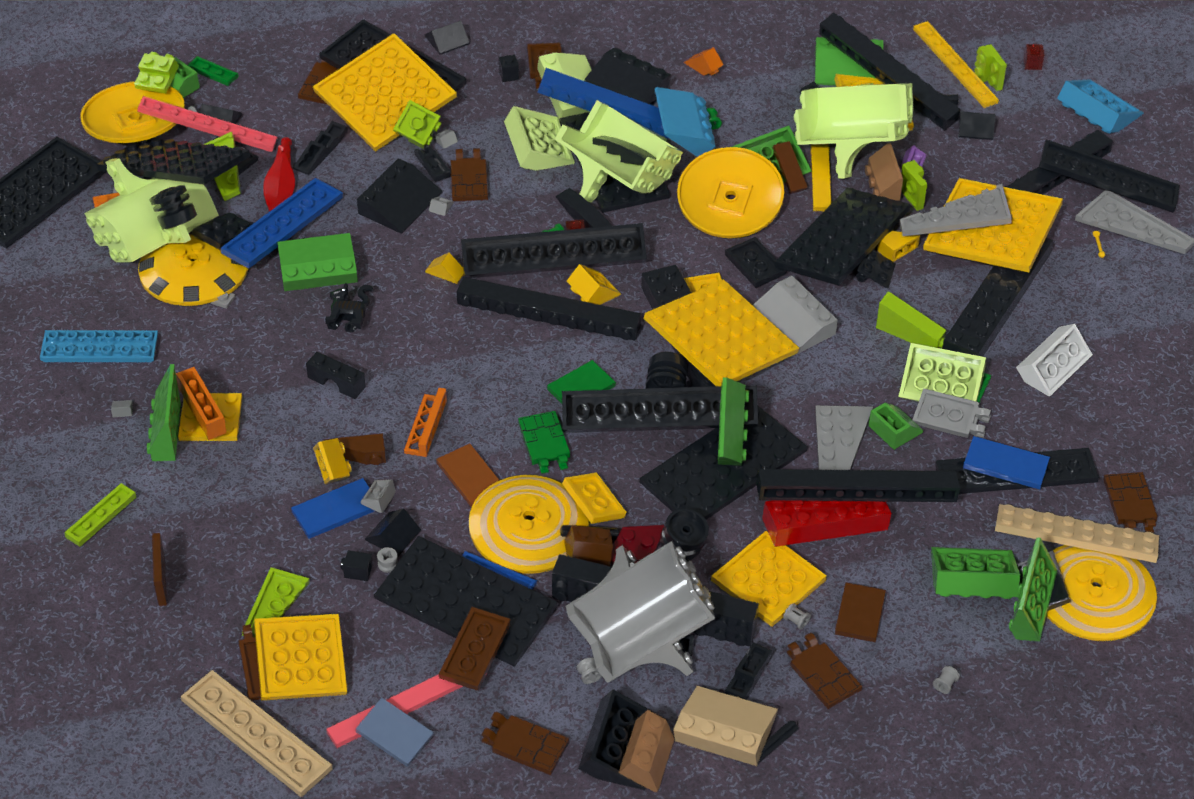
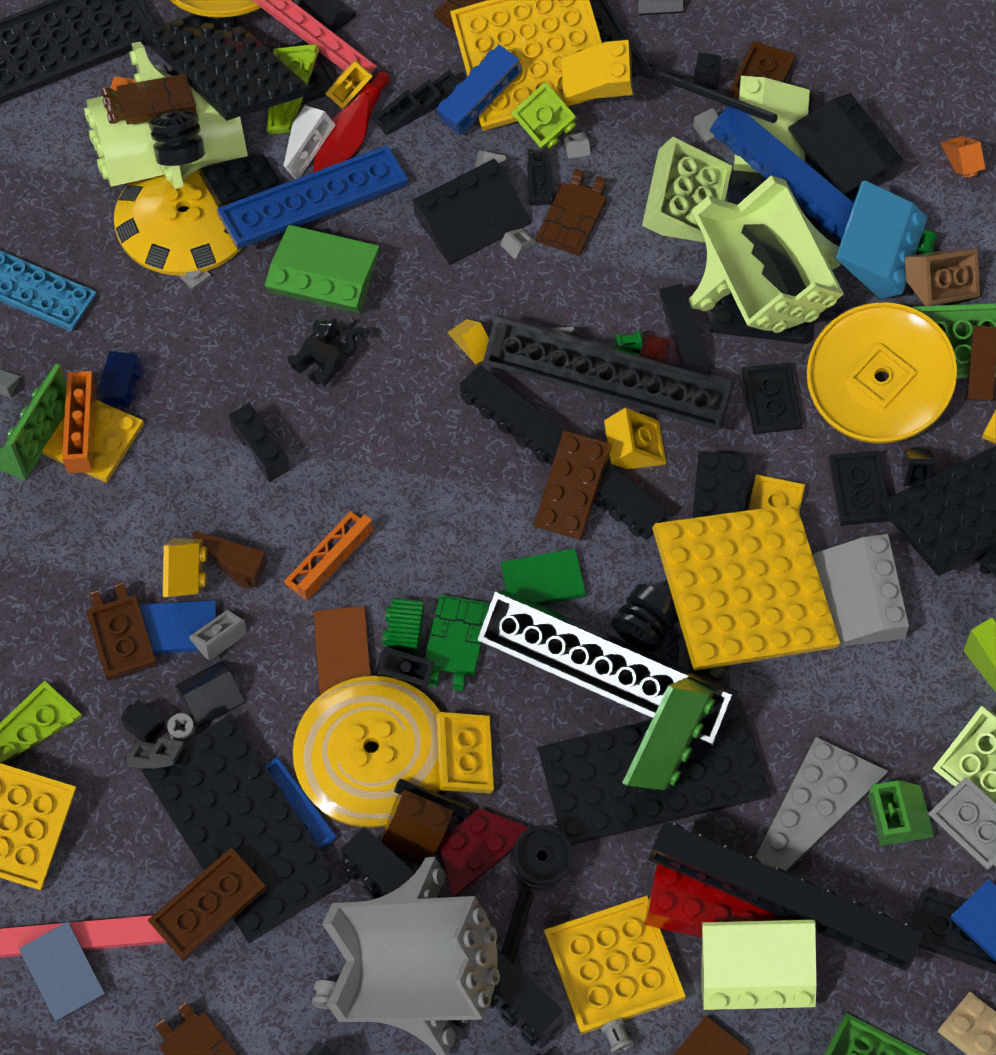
camera: 30 degrees right, 15 degrees up
(135, 193) = (148, 98): none -> reddish brown tile
(210, 370) = (119, 379): none -> clear blue brick
(256, 187) = (306, 138): none -> white slope
(266, 150) = (348, 84): none -> yellow slope
(307, 520) = (120, 634): none -> reddish brown tile
(362, 123) = (479, 89): none -> blue brick
(385, 576) = (156, 755): none -> dark grey slope
(386, 163) = (484, 156): none -> light grey slope
(441, 84) = (598, 72): none -> yellow slope
(473, 76) = (679, 80): none -> black piece
(505, 444) = (404, 626): none -> green brick
(521, 463) = (404, 666): none -> black slope
(527, 99) = (703, 123): none -> light grey slope
(570, 322) = (572, 485): none -> reddish brown plate
(667, 234) = (771, 398): none -> black tile
(735, 126) = (944, 275): none -> medium nougat slope
(785, 235) = (917, 465): none -> black slope
(863, 533) = (758, 964): none -> yellowish green slope

